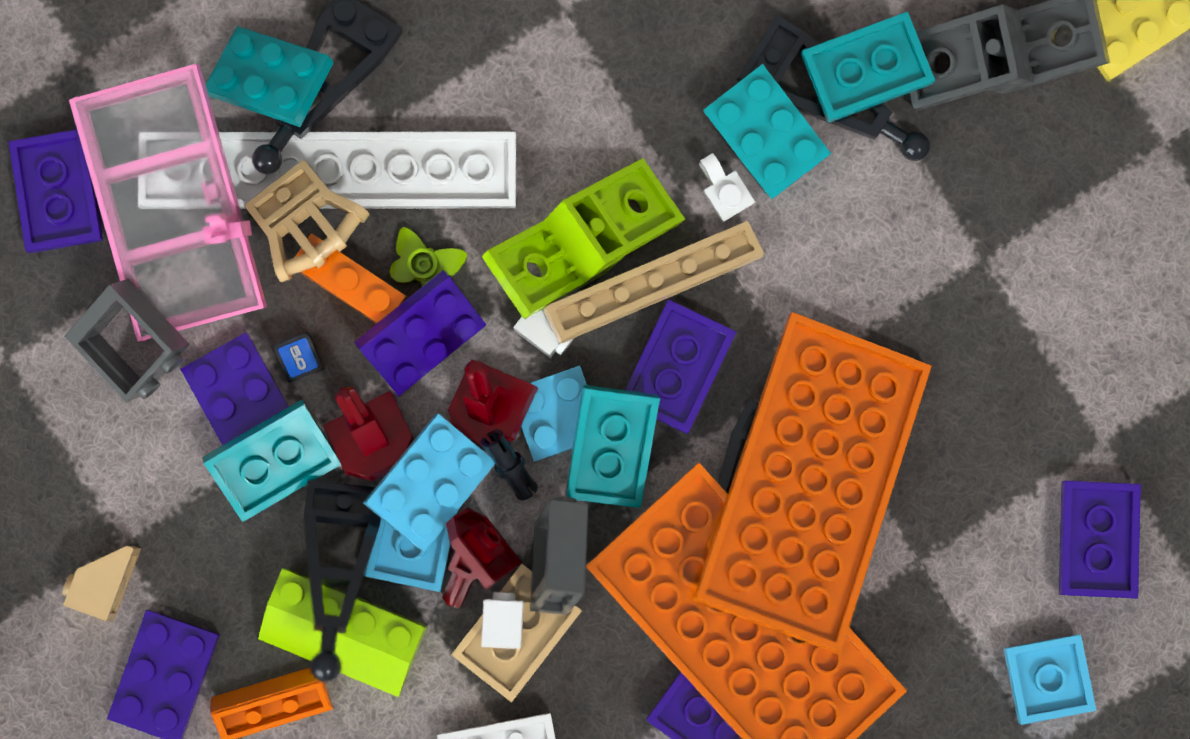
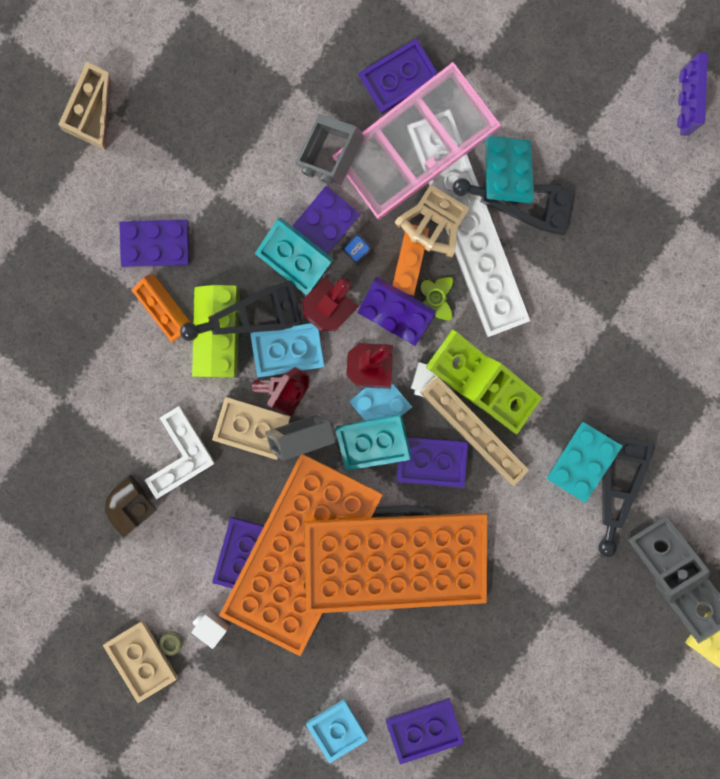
camera: 70 degrees right, 5 degrees up
(101, 584) = (190, 189): tan slope -> none
(225, 228) = (413, 178): bright pink plate -> none
(429, 482) = (314, 349): medium azure plate -> none
(502, 621) = (253, 419): white brick -> none
(509, 464) = (341, 389): black pin -> none
(727, 193) = (540, 452): white plate -> none
(867, 67) = (643, 506): teal plate -> none

